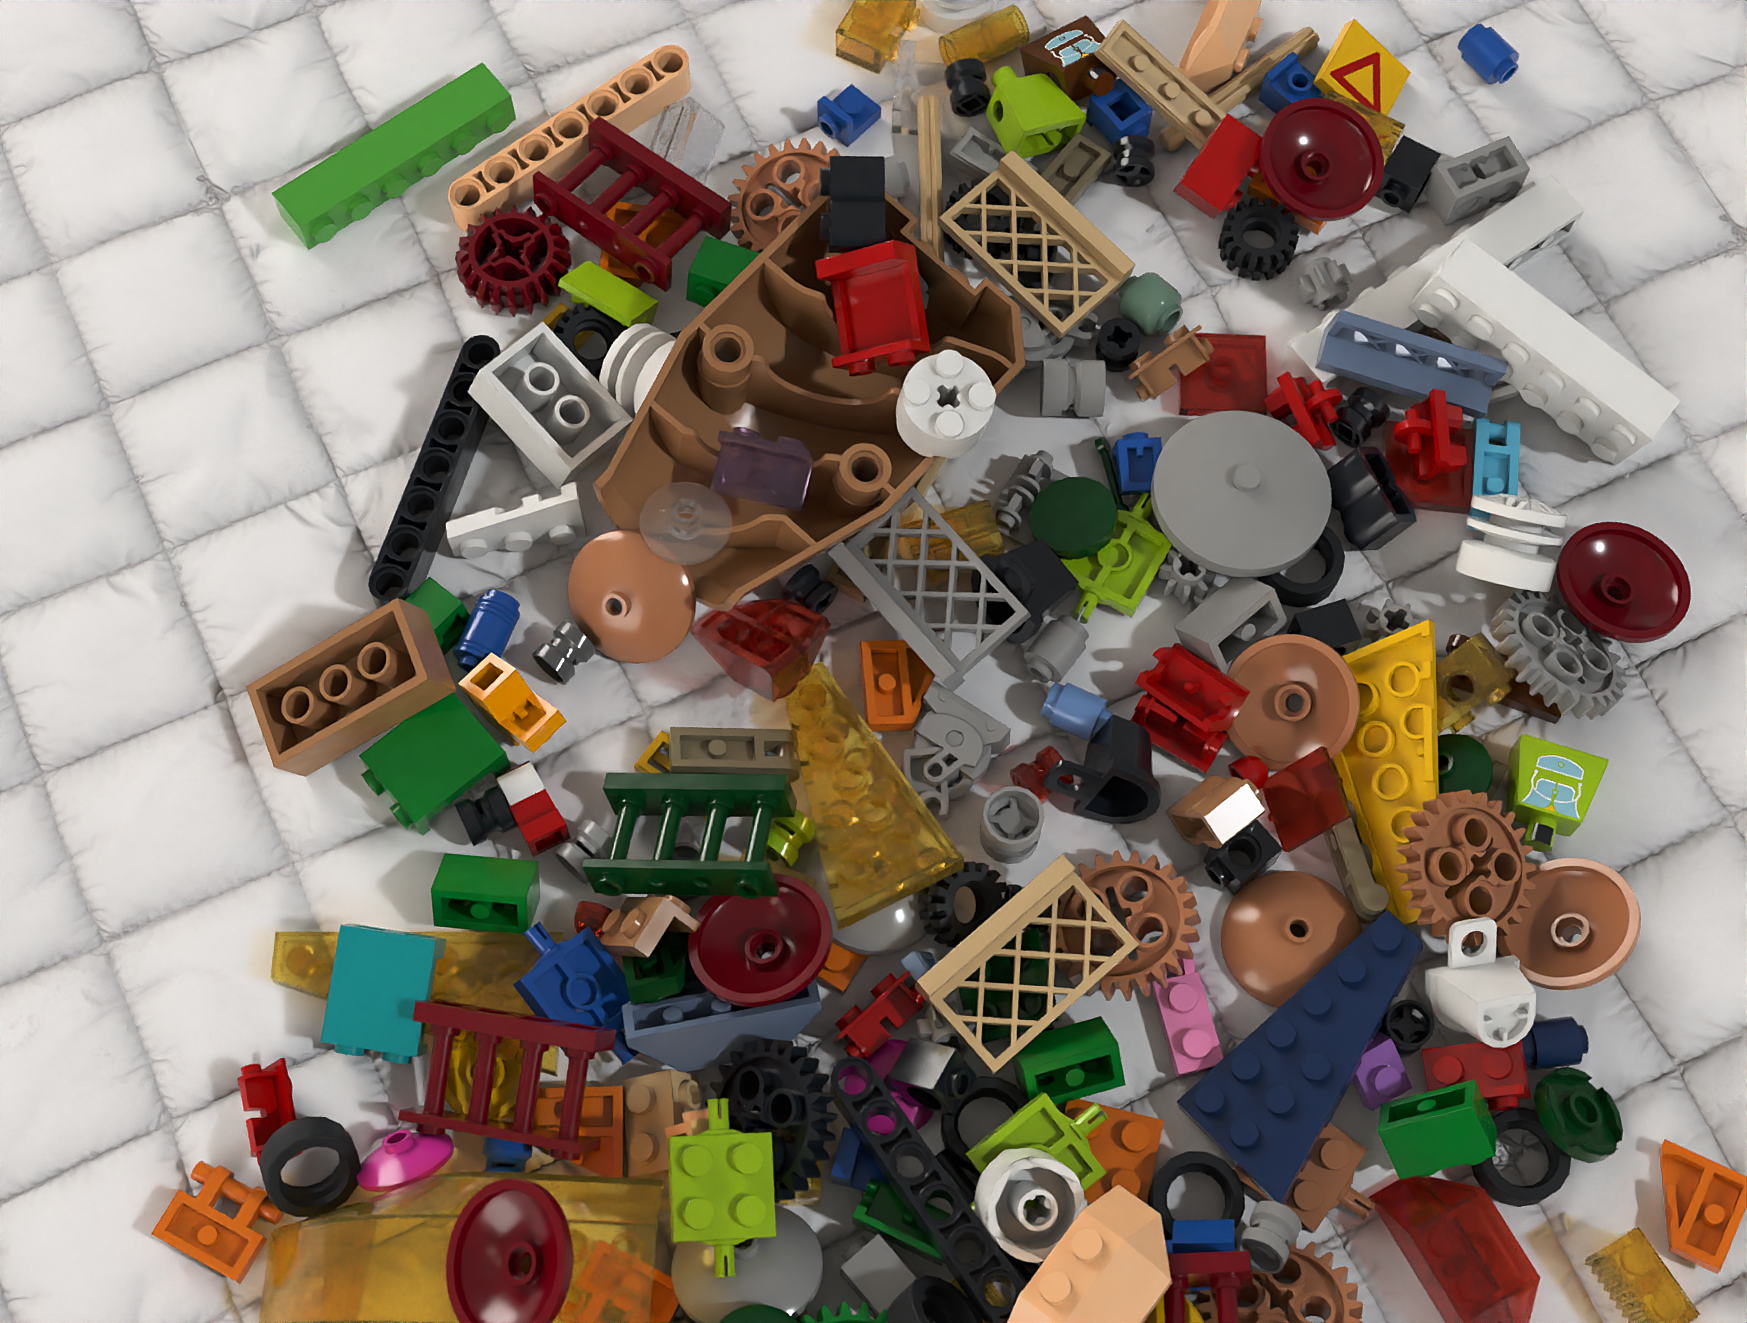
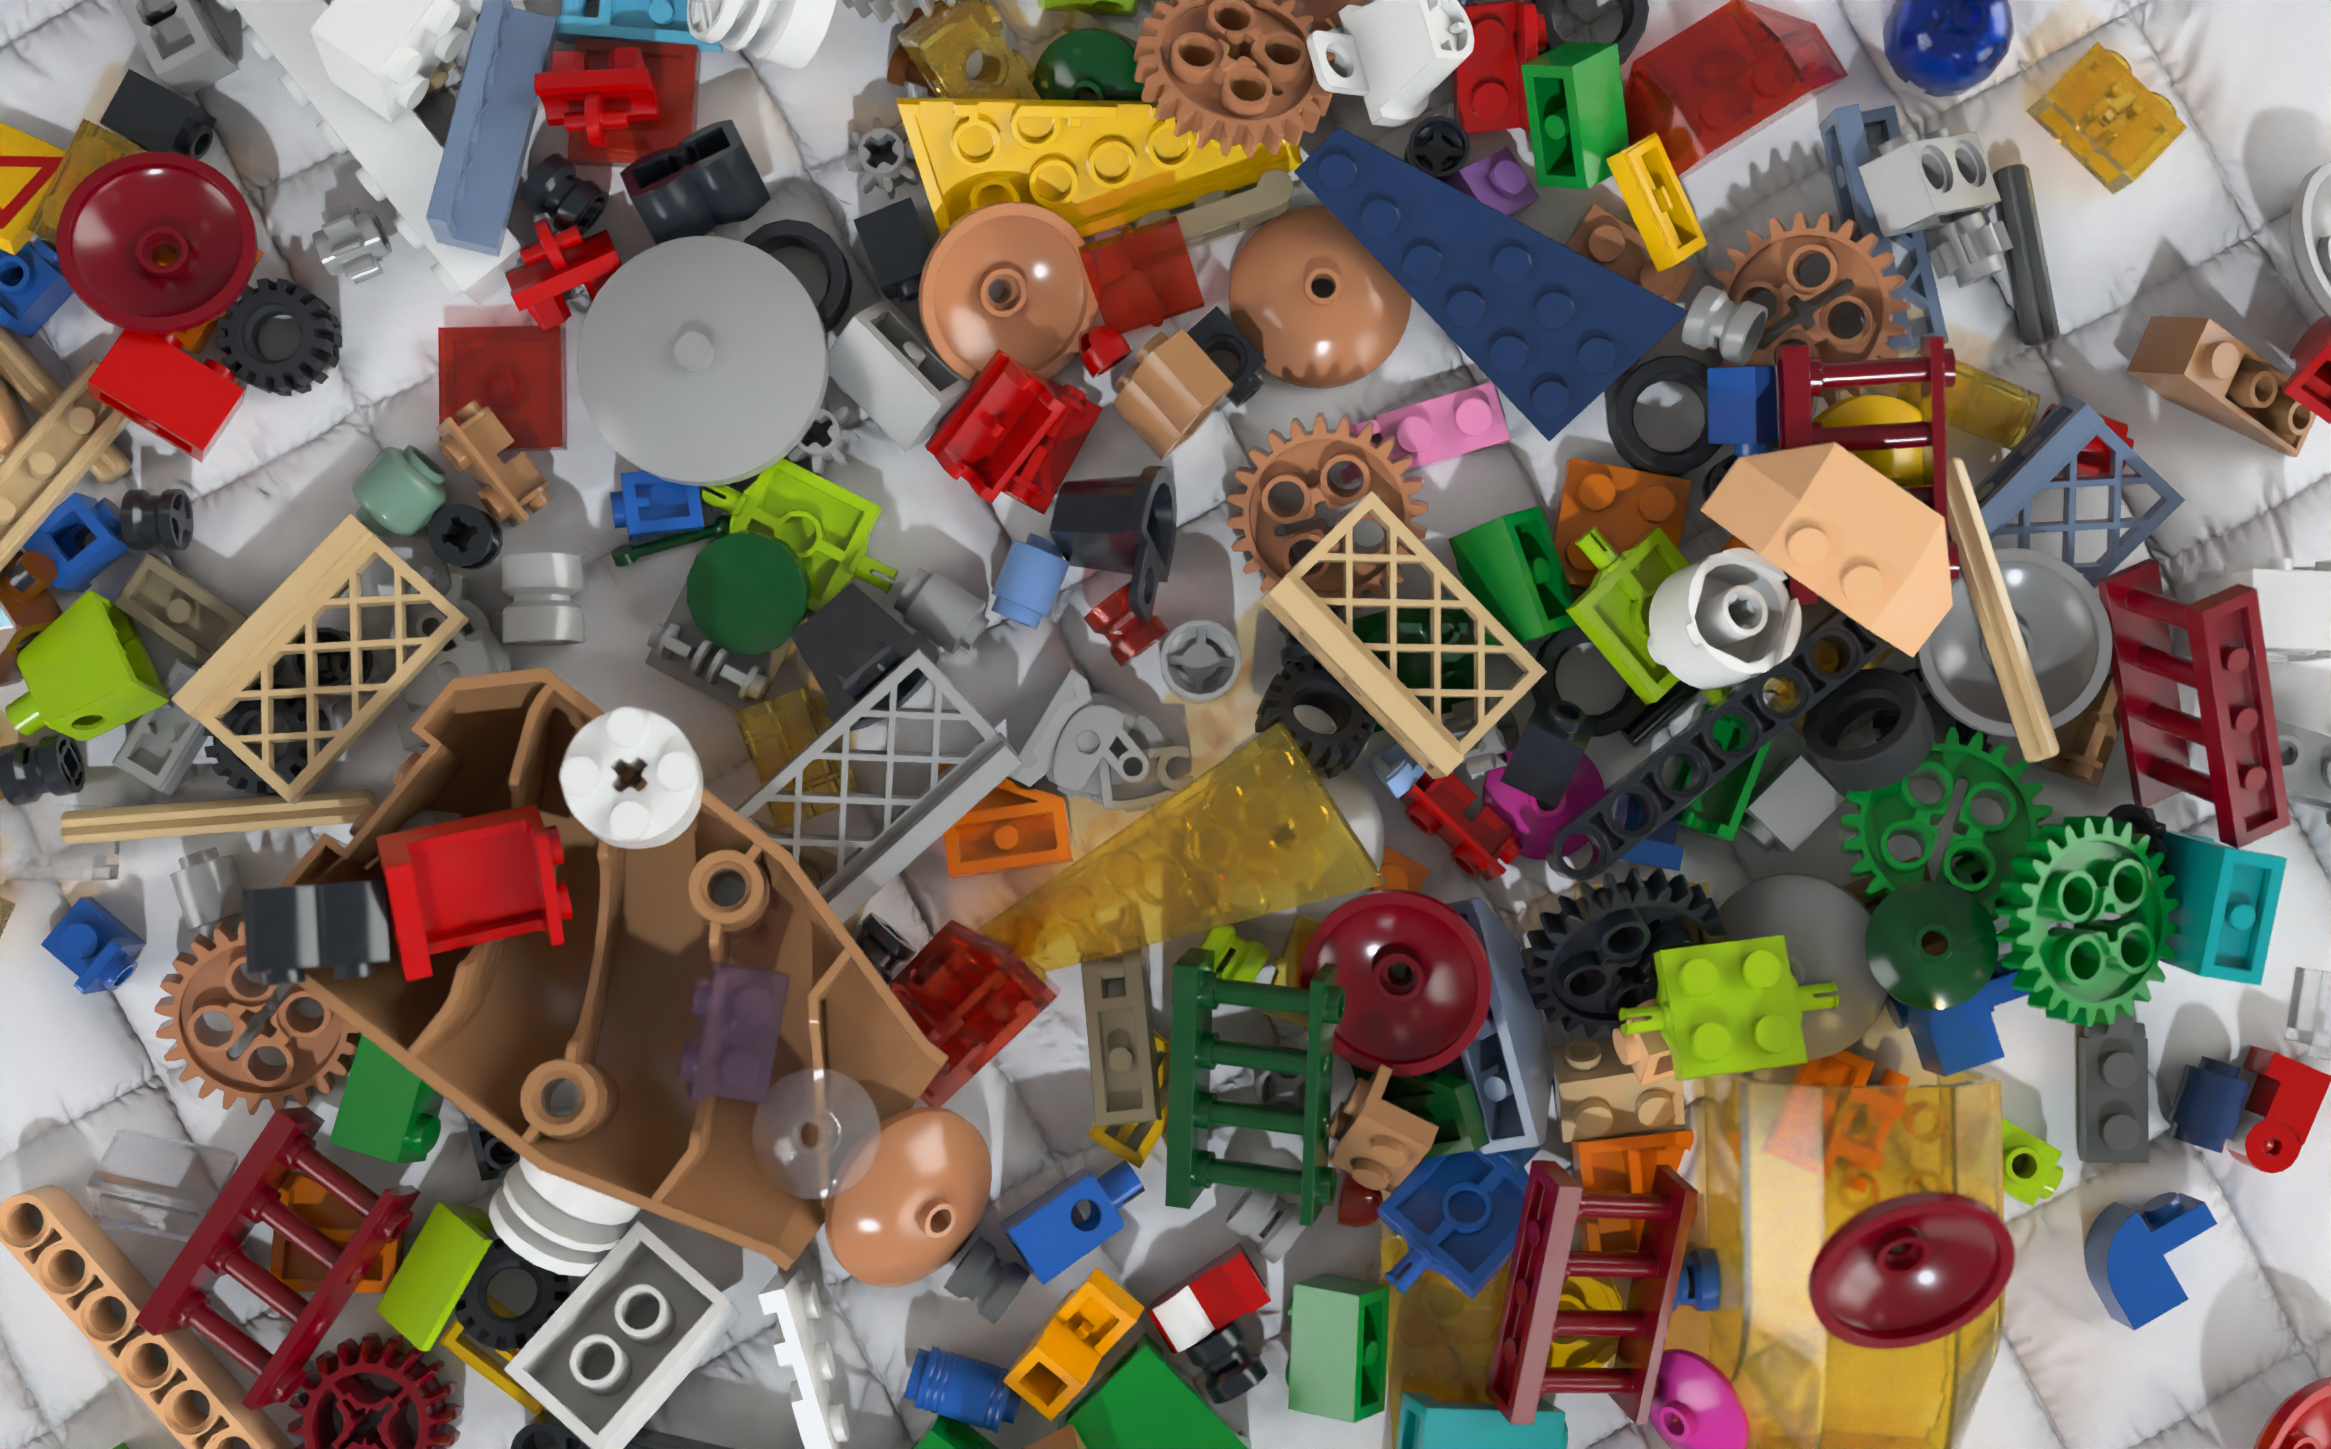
camera: 90 degrees left, 20 degrees up
(595, 690) = (1044, 1227): none -> blue torso
(1366, 1187) = (1657, 202): none -> yellow tile

